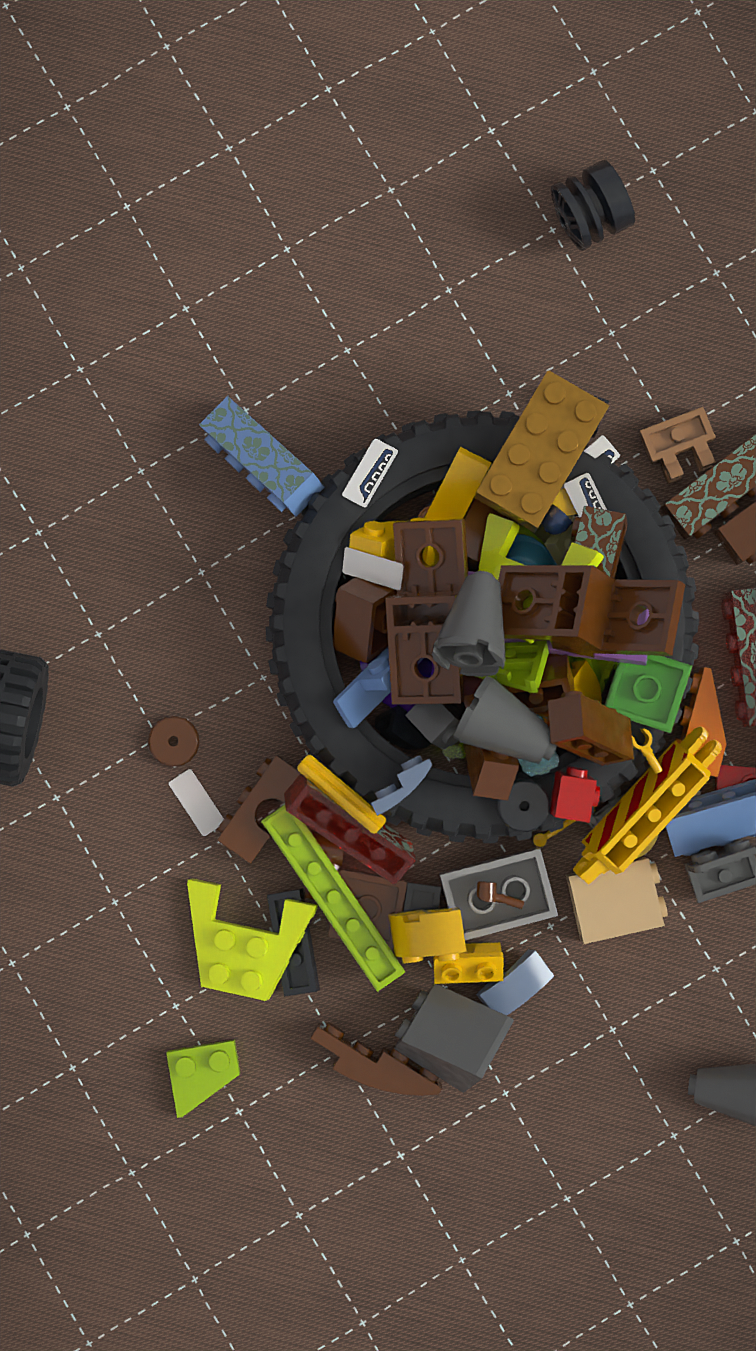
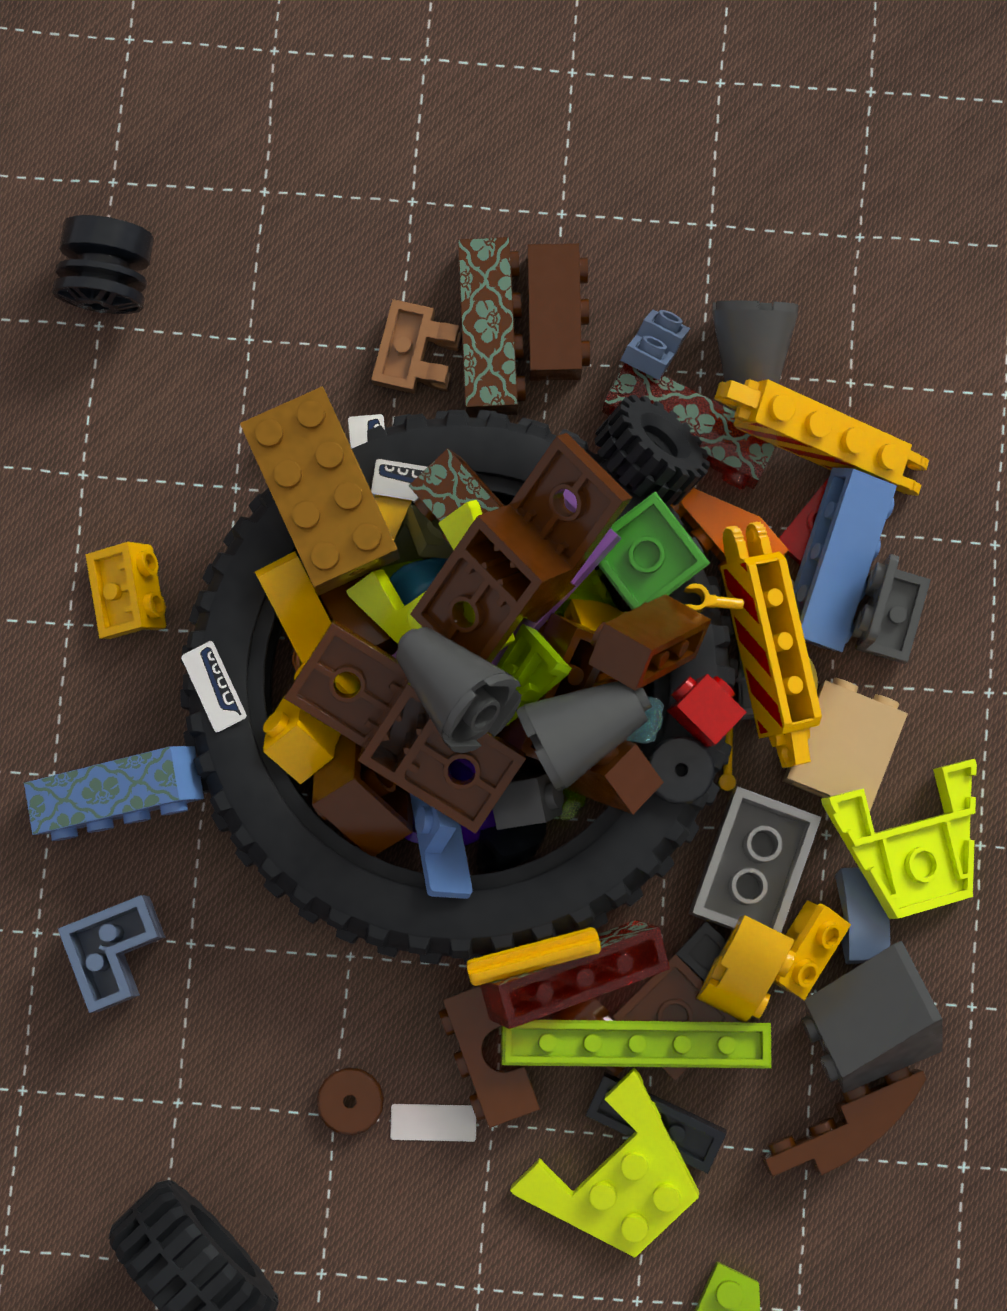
camera: 55 degrees left, 5 degrees down
(158, 517) = (99, 947): none -> sand blue brick
(372, 568) = (317, 754): white sticker -> none
(394, 371) = (126, 589): none -> yellow bracket
(410, 778) = (568, 869): sand blue slope -> none
(487, 892) = (746, 874): reddish brown hand -> none
(556, 521) = (404, 526): dark blue hinge -> none
(575, 998) = (916, 862): none -> neon yellow wing
(719, 644) = (651, 450): none -> black tyre

